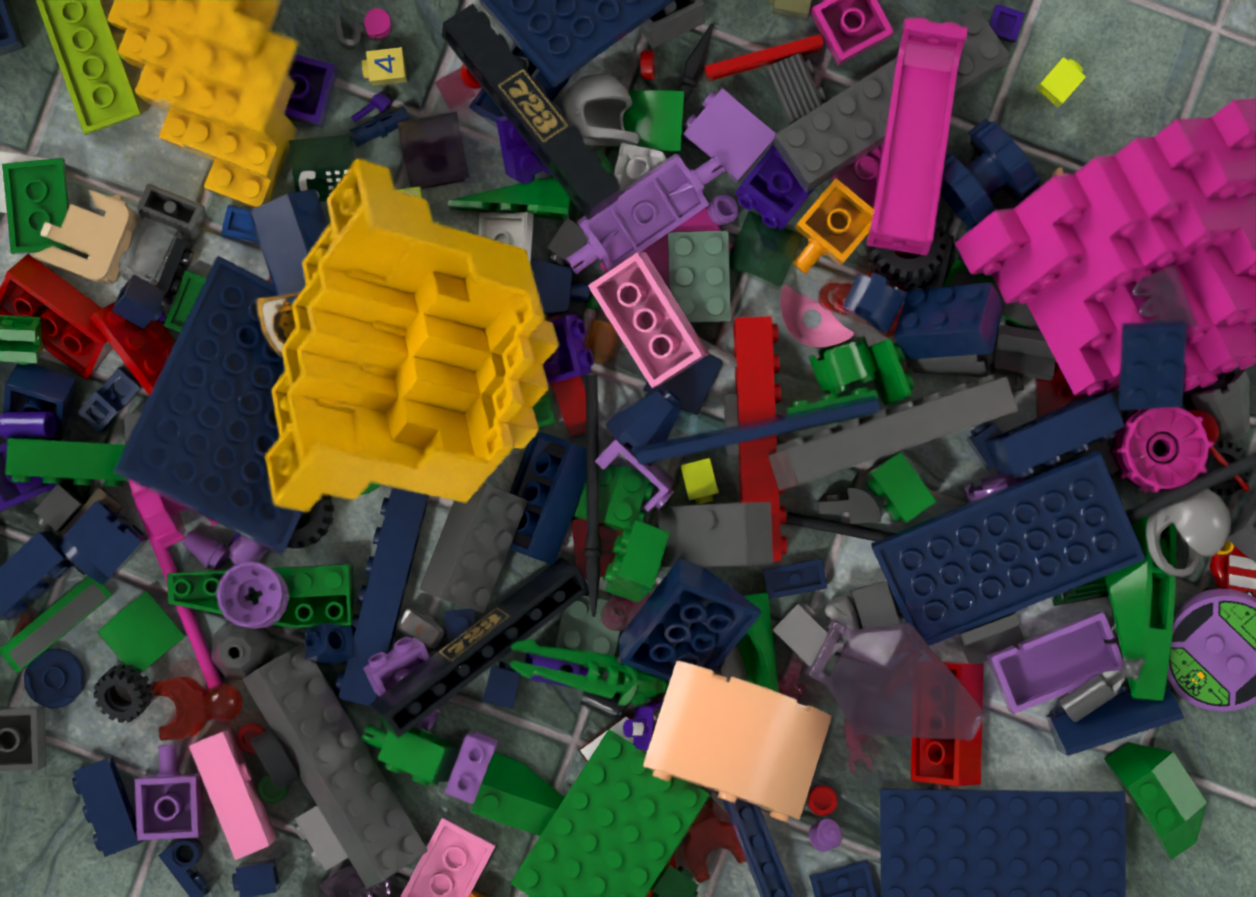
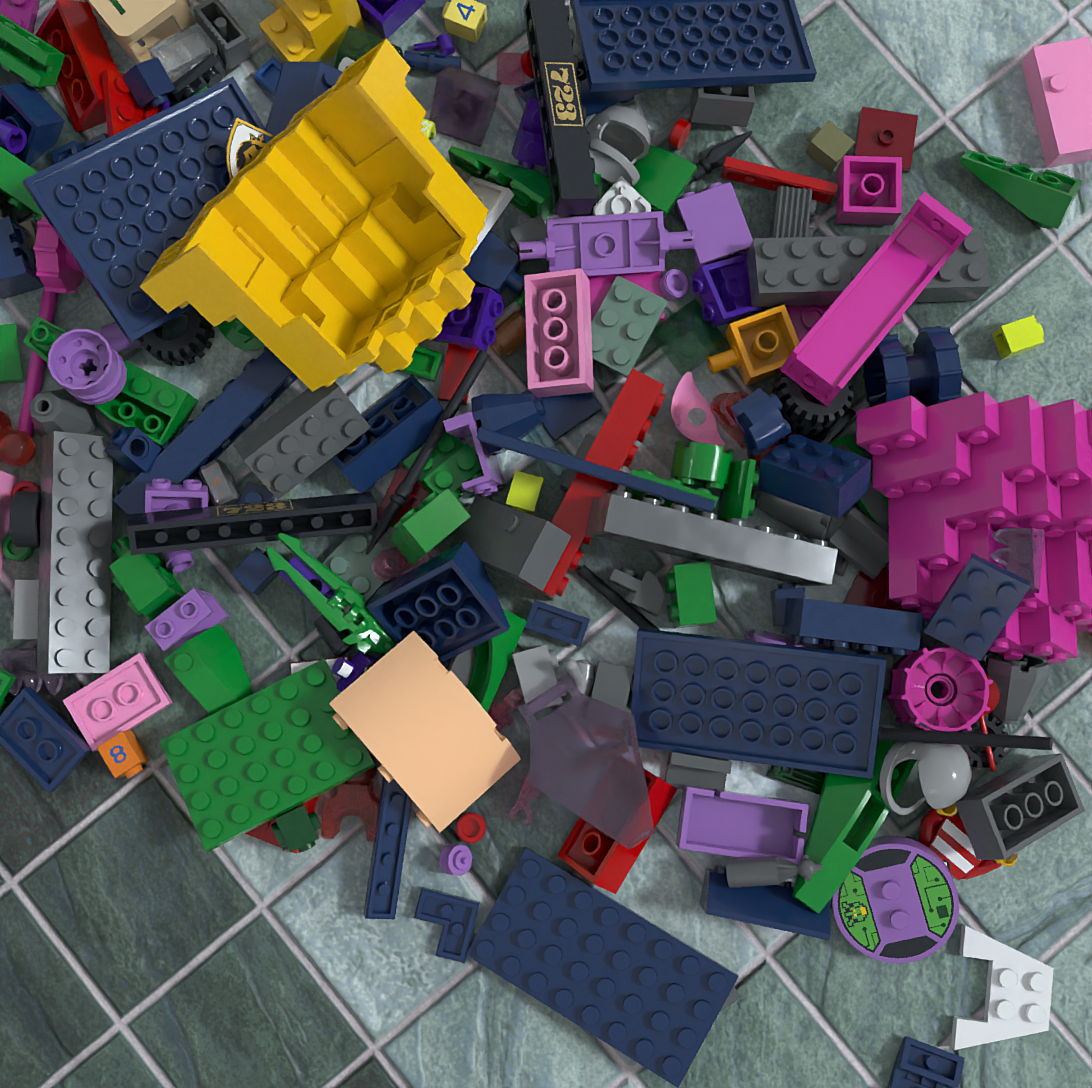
camera: 35 degrees right, 5 degrees down
(206, 550) = (83, 316): medium lavender cone -> none
(1006, 22) = (999, 264): dark purple plate -> none
(1161, 793) = (769, 996): green wedge -> none

